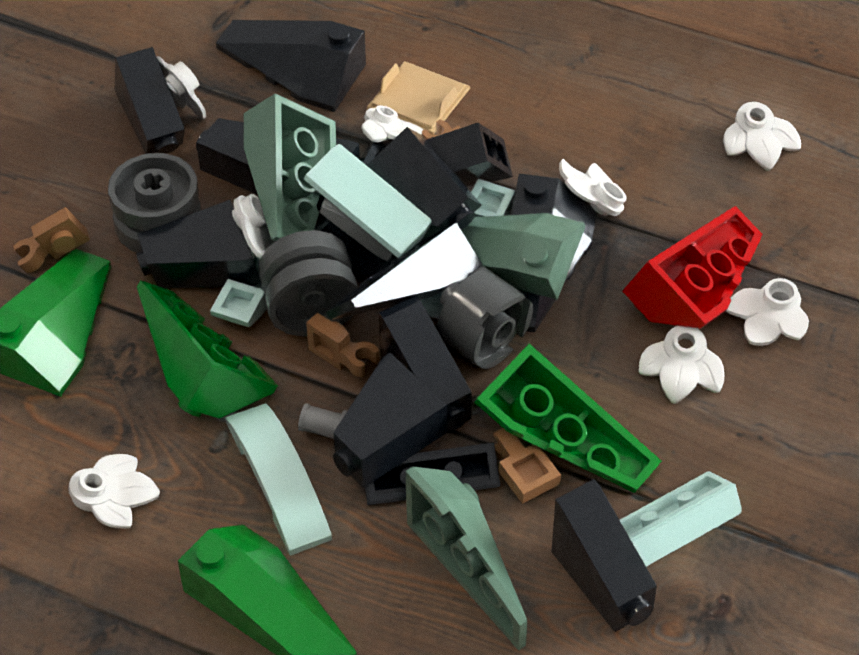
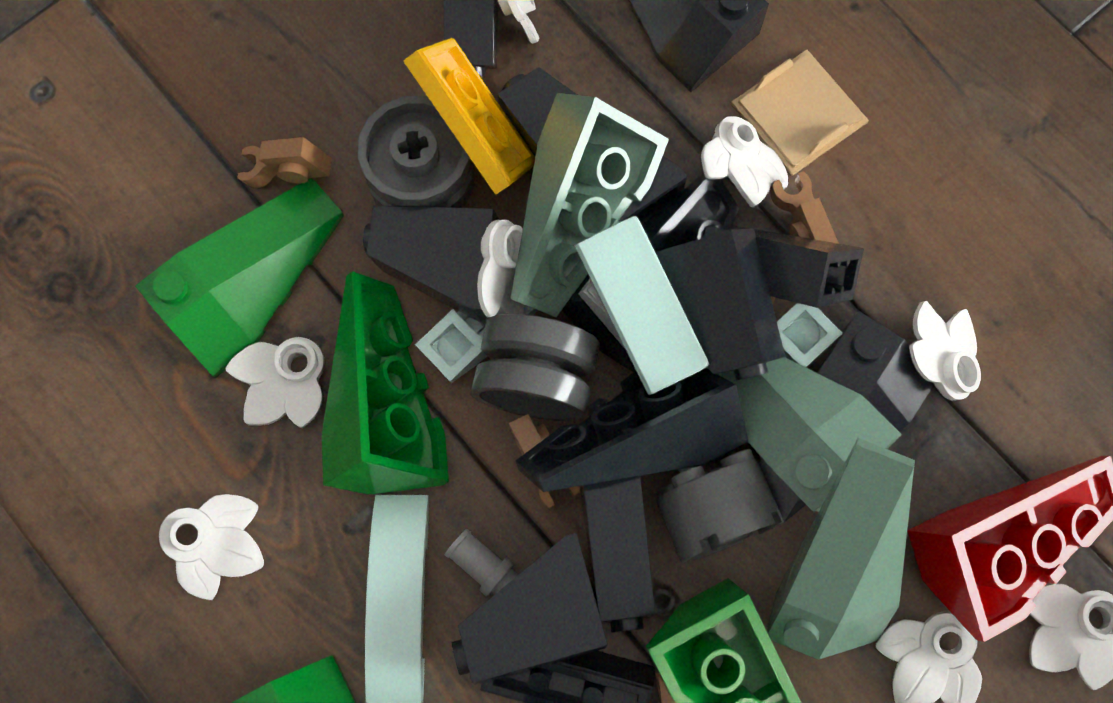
camera: 25 degrees right, 25 degrees up
(115, 374) = (274, 386): none -> white plate
(186, 150) = (471, 113): none -> yellow tile
(591, 313) = (851, 561): none -> sand green wedge

